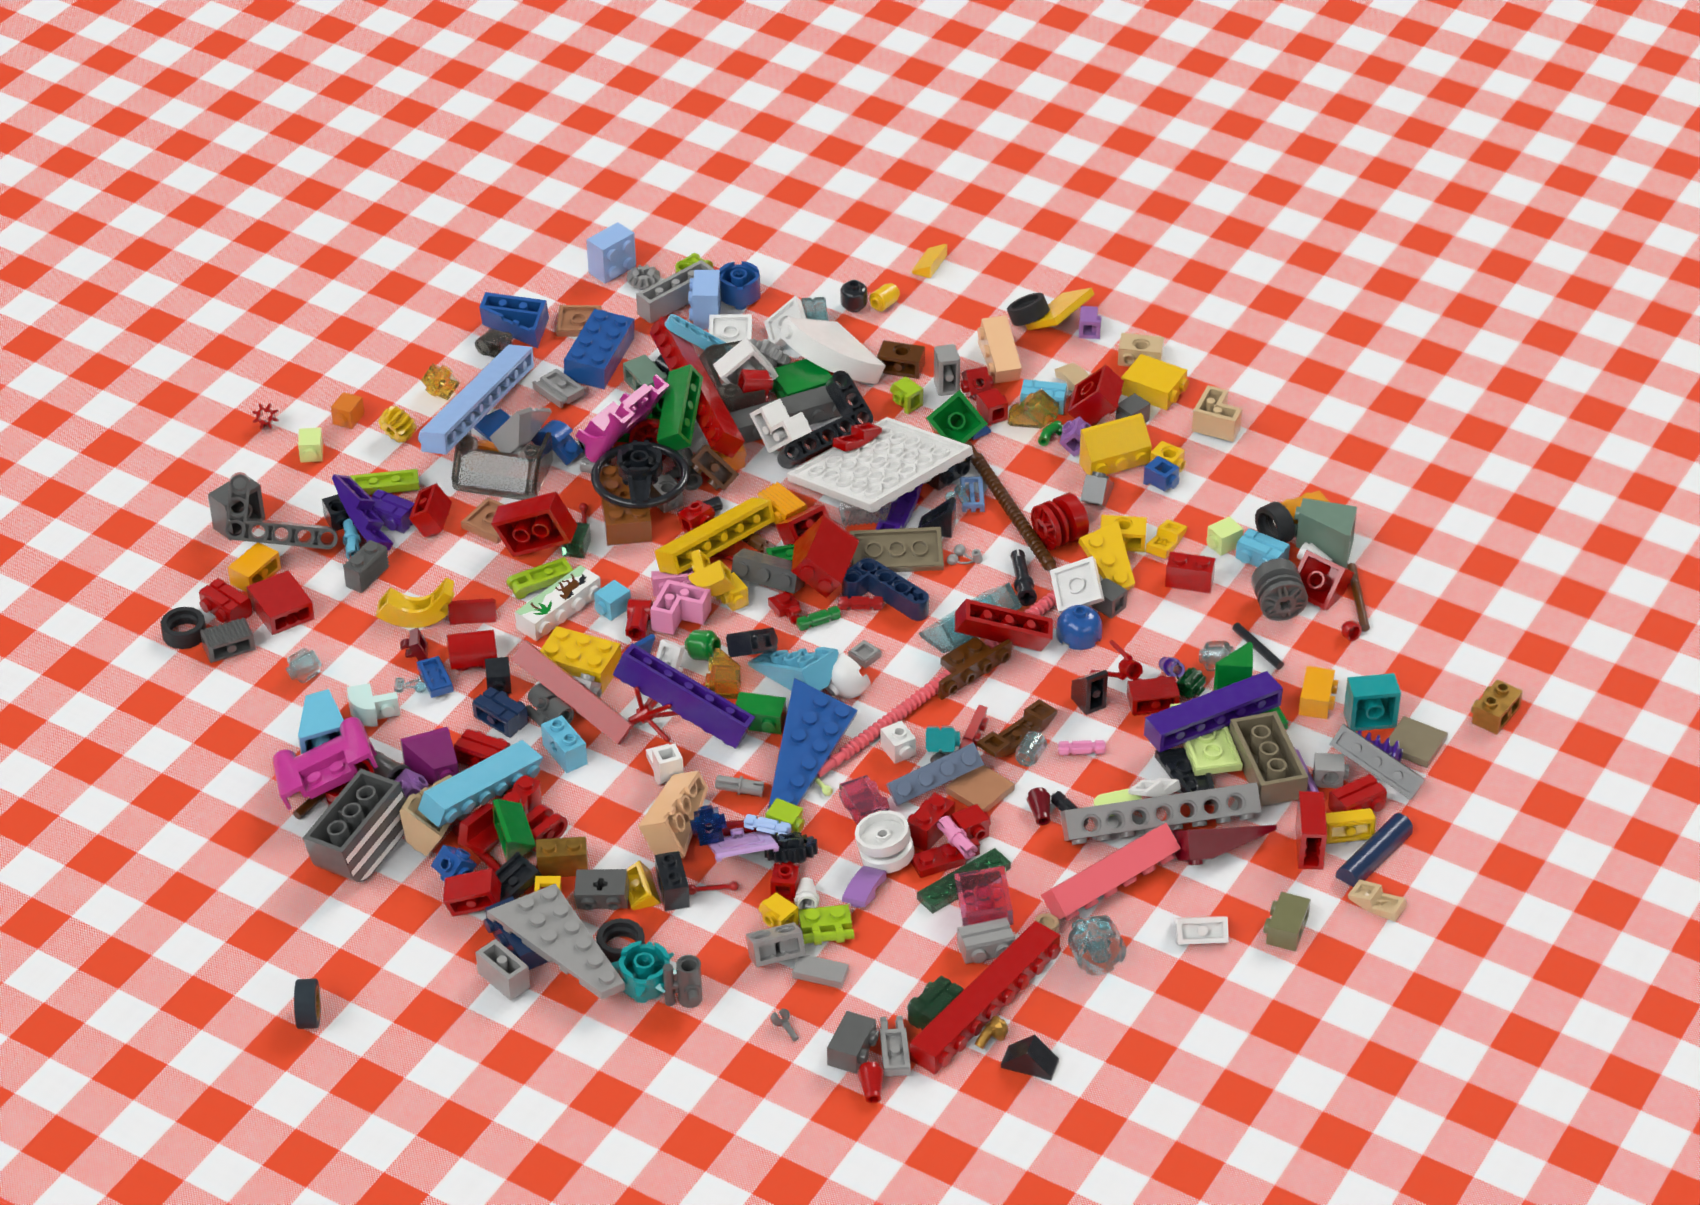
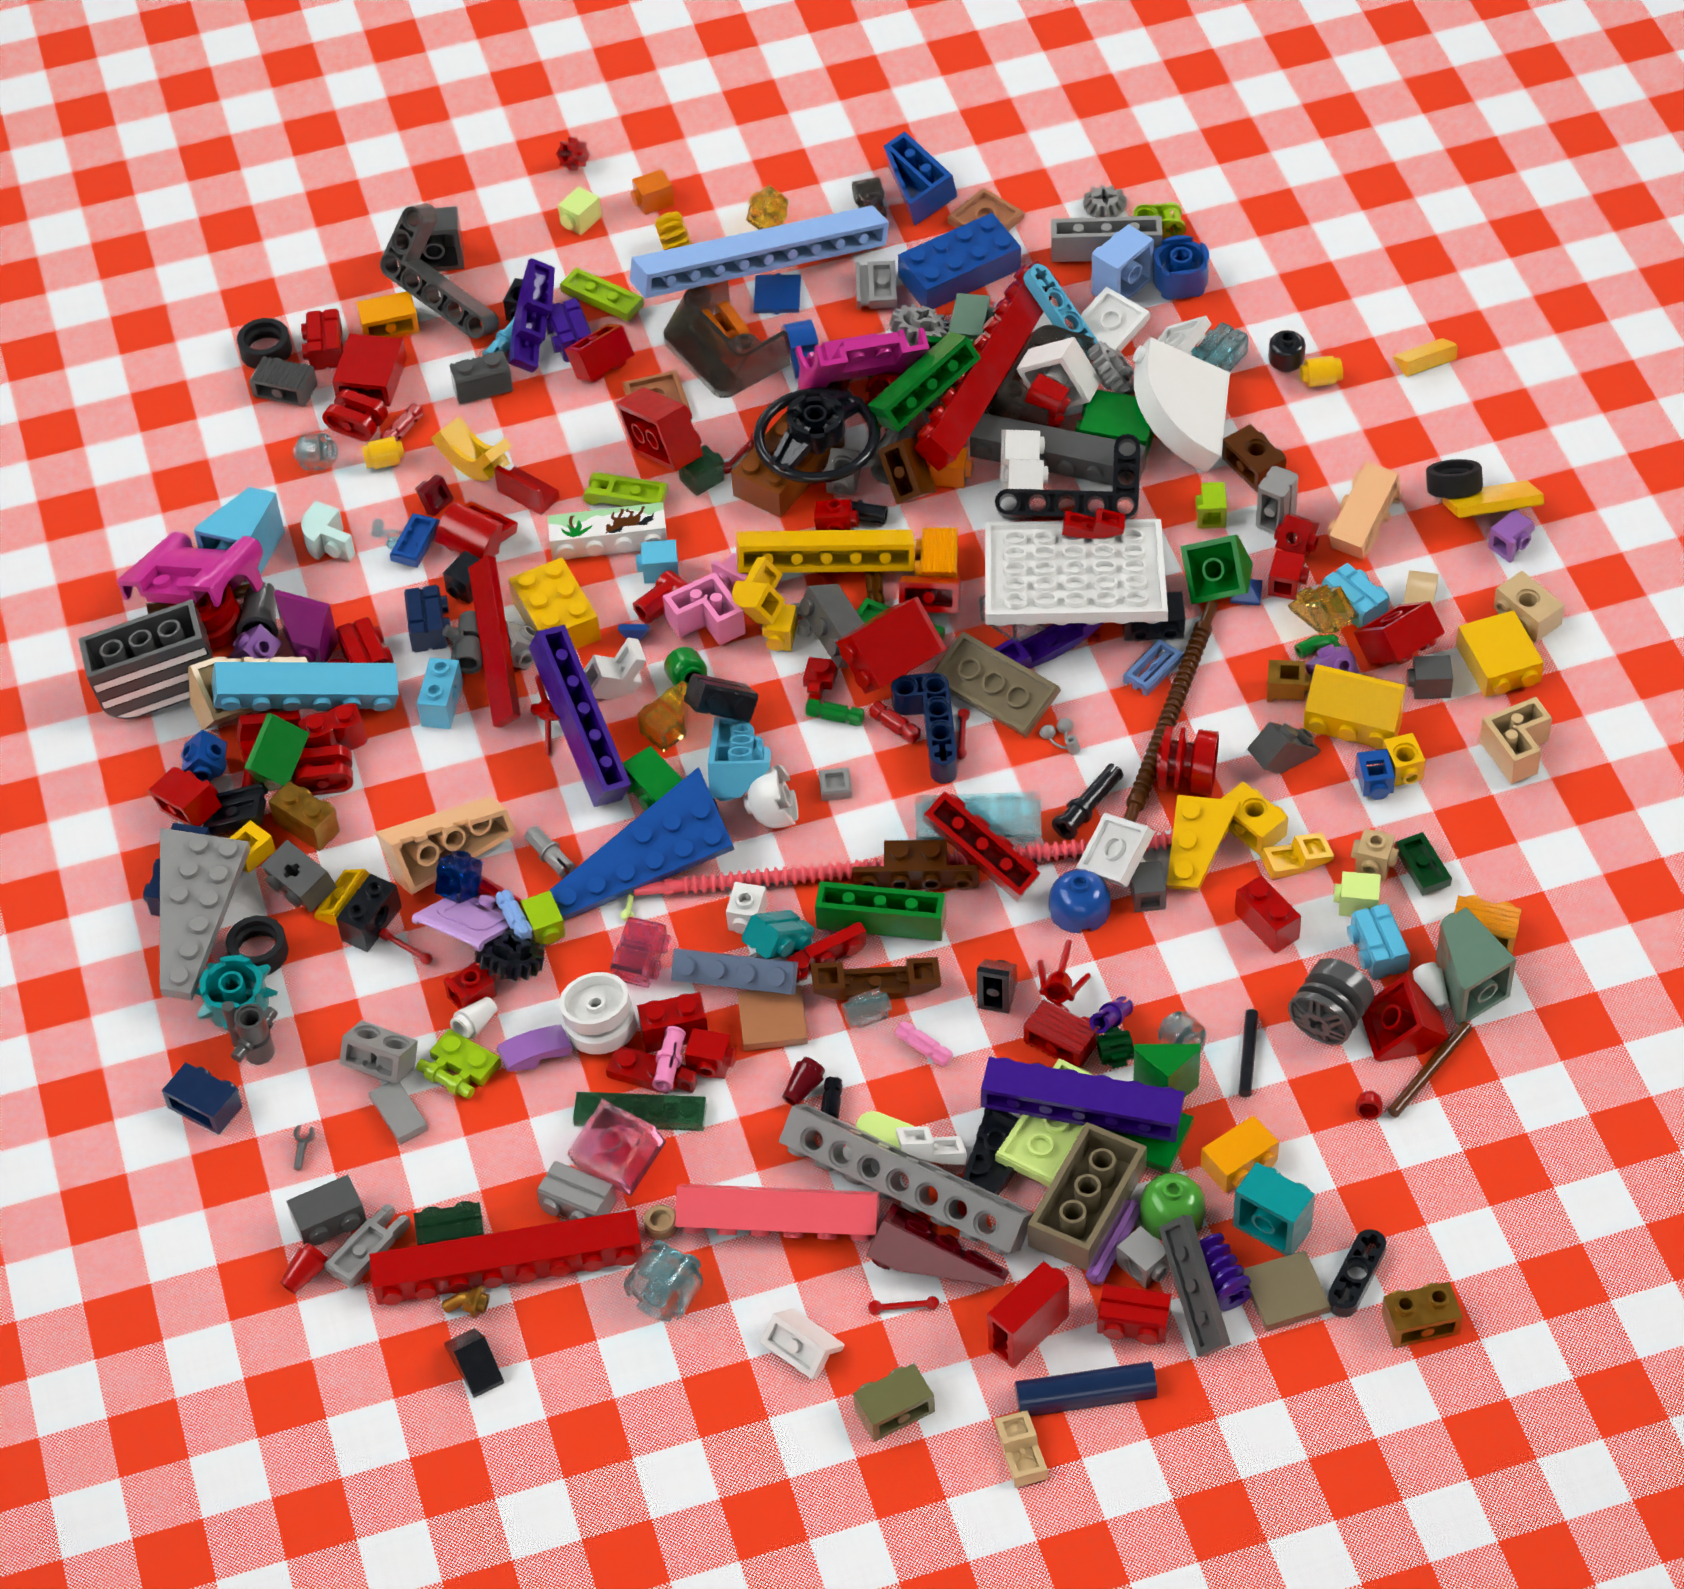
camera: 45 degrees right, 10 degrees up
(304, 631) = (355, 415): none -> red brick
(340, 622) = (404, 422): none -> axle
(351, 642) = (383, 453): none -> yellow brick
(503, 969) = (121, 900): light grey brick -> none
(519, 429) = (763, 311): light grey wedge -> none
(611, 252) = (1088, 154): light blue brick -> none
(613, 391) = (913, 318): none -> light grey gear
(665, 762) = (501, 777): white brick -> none
(693, 1039) = (202, 1098): none -> dark blue piece
(778, 911) = (423, 1020): yellow brick -> none
(941, 516) = (1079, 679): black slope -> none
(960, 491) = (1128, 658): clear light blue piece -> none
(988, 689) = (881, 910): none -> green brick
(1057, 457) = (1287, 680): none -> pearl gold brick
(1209, 510) = (1375, 853): none -> tan brick
(1216, 888) = (876, 1307): none -> red hinge
(1237, 503) = (1423, 863): none -> dark green plate
(1282, 518) = (1423, 917): black tyre -> none
(1312, 736) = (1169, 1198): none -> bright green cylinder
(1350, 825) = (1087, 1337): yellow slope -> none
(1432, 690) = (1357, 1286): none -> black beam

